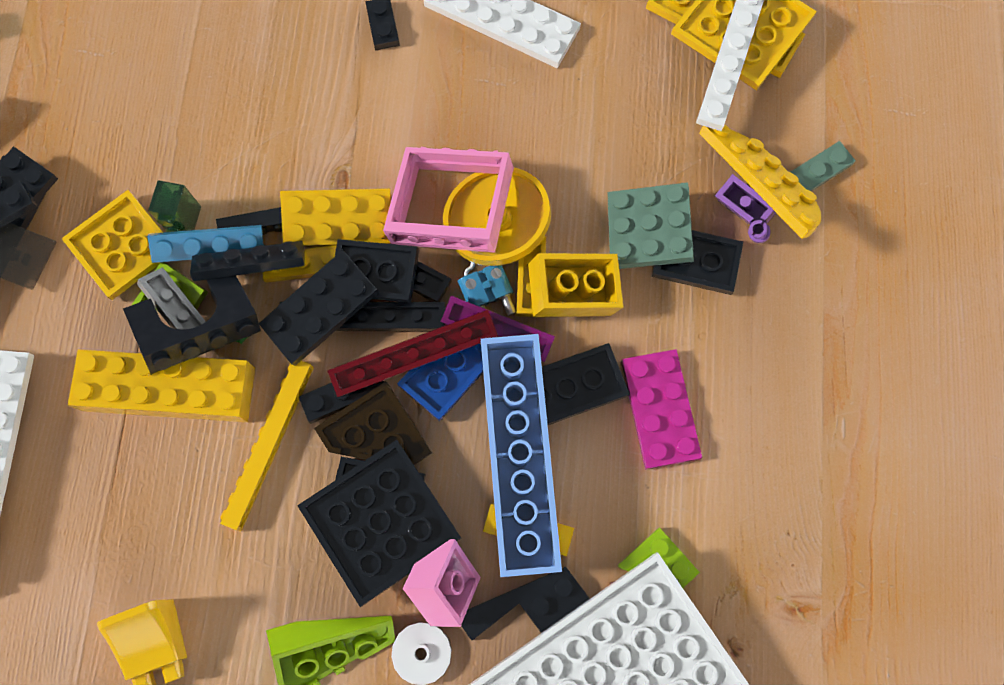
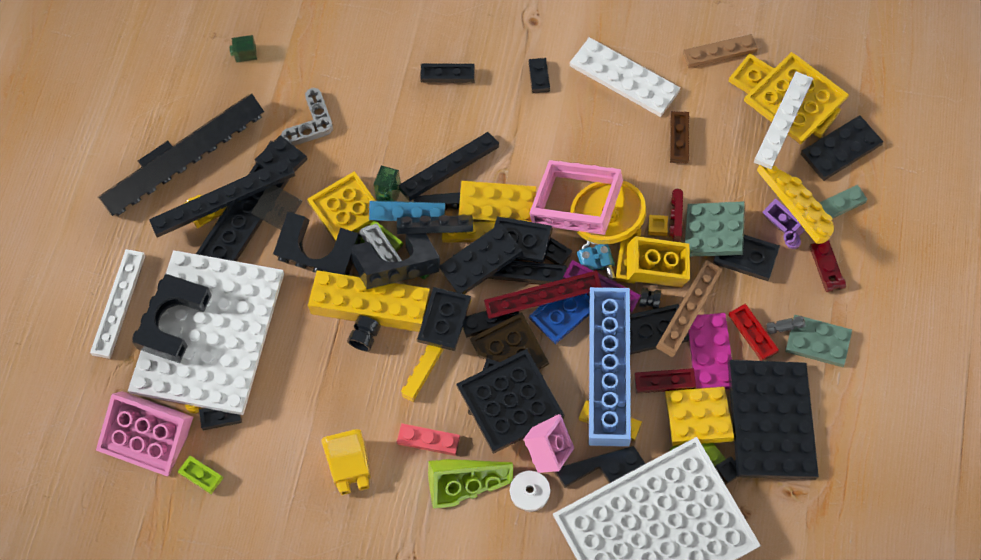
camera: 10 degrees right, 10 degrees down
(41, 312) = (290, 247): none -> black arch
(72, 120) = (318, 121): none -> light grey beam
(157, 437) = (362, 336): none -> black wheel
(252, 31) = (447, 73): none -> black plate
(263, 169) = (448, 166): none -> black plate
(266, 589) = (428, 439): none -> coral plate
(272, 404) = (444, 319): none -> black plate
(568, 339) = (650, 298): none -> black wheel
(569, 227) = (658, 225): none -> yellow plate
(586, 95) = (679, 137): none -> reddish brown plate
(594, 210) = (676, 215): none -> dark red plate
(601, 461) = (664, 380): none -> dark red plate
(625, 352) = (689, 308): none -> medium nougat plate
(655, 512) = (699, 414): none -> yellow plate
(707, 586) = (727, 470): none -> black plate
(719, 374) = (753, 332): none -> red plate
(760, 506) = (772, 420): none -> black plate
(764, 359) = (785, 325): none -> dark grey axle
(810, 89) = (841, 147): none -> black plate
(811, 266) = (827, 266): none -> dark red plate
(811, 376) = (820, 342): none -> sand green plate

